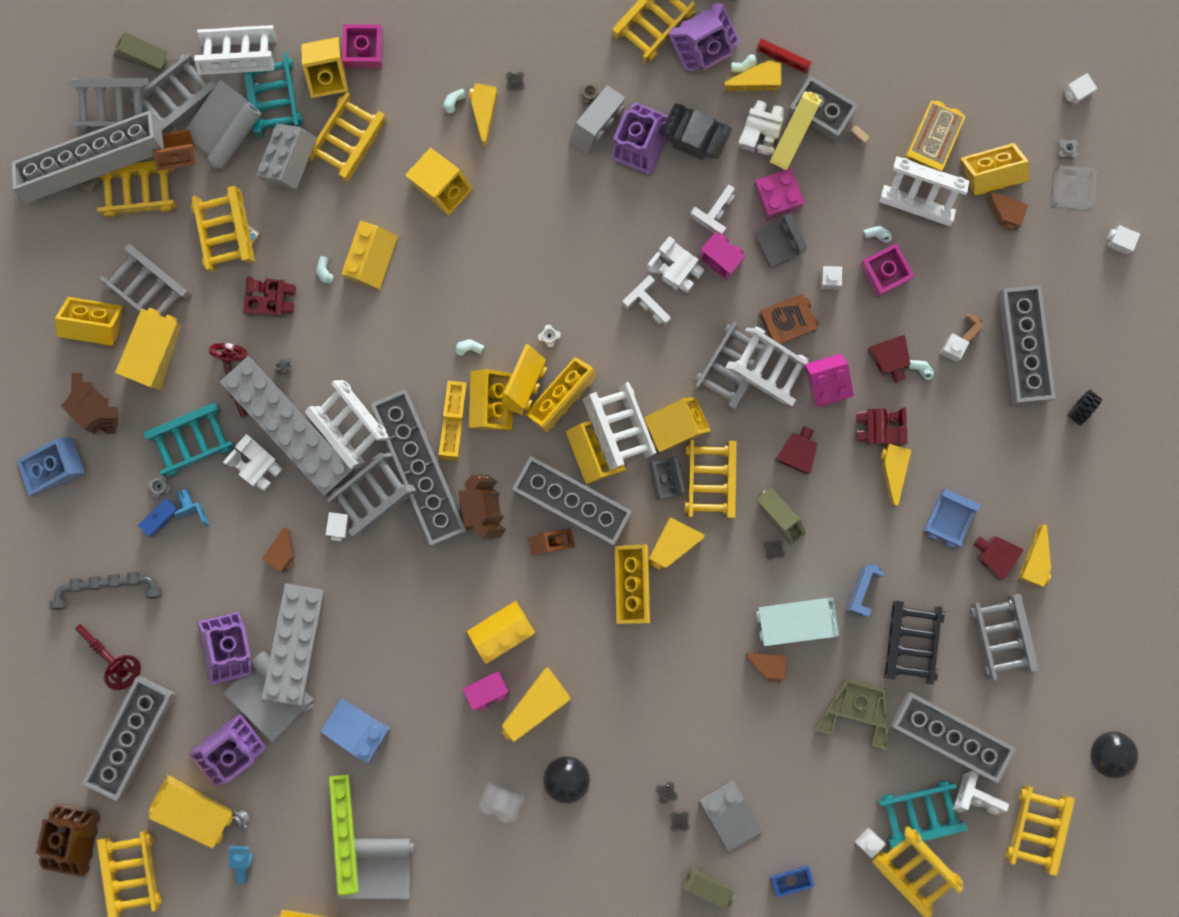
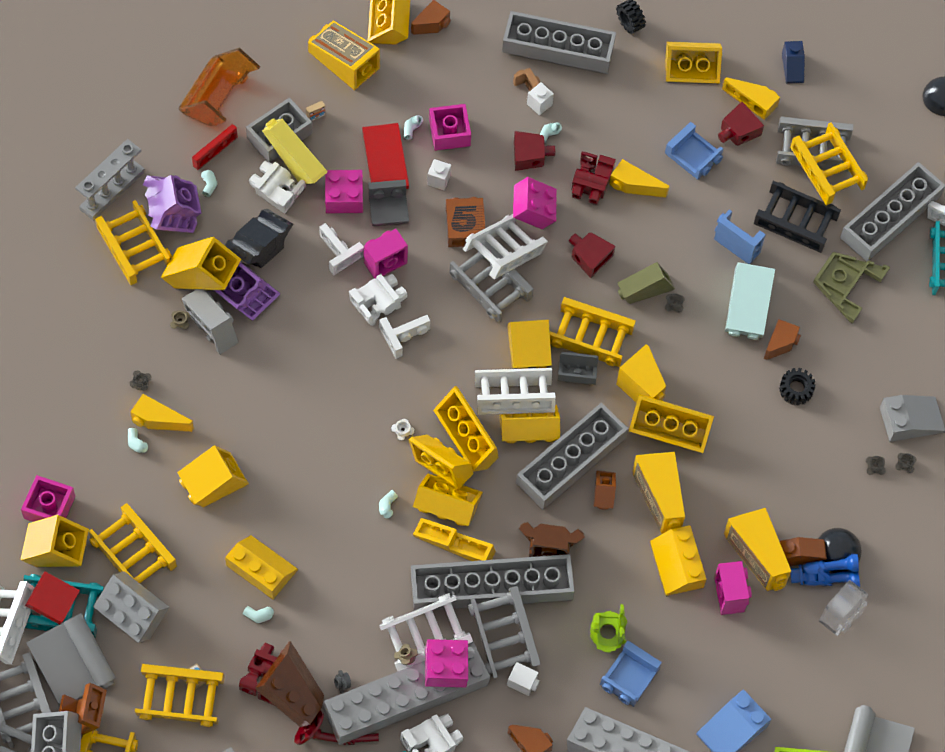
camera: 75 degrees left, 20 degrees down
(258, 324) = (292, 687): none -> reddish brown wedge
(269, 84) = (52, 598): none -> red tile
(314, 451) = (446, 663): none -> dark pink brick
(317, 418) = (410, 655): none -> dark tan plate
(374, 621) = (630, 674): none -> medium blue panel
(399, 598) = (609, 618): none -> lime piece
(534, 775) = (818, 572): none -> blue piece
(548, 746) = (803, 550): none -> dark orange slope
(566, 594) = (661, 488): none -> yellow slope
(641, 90) = (201, 266): none -> yellow slope
(735, 698) = (806, 380): none -> black tyre
(759, 78) = (229, 166): yellow slope -> none
(835, 220) = (385, 153): none -> red tile
(848, 30) = (215, 84): none -> clear orange windscreen
(923, 207) = (403, 79): white fence -> none
(960, 652) = (818, 176): none -> yellow fence
(1056, 486) = (693, 62): none -> yellow slope
(1094, 589) = (793, 61): none -> dark blue slope

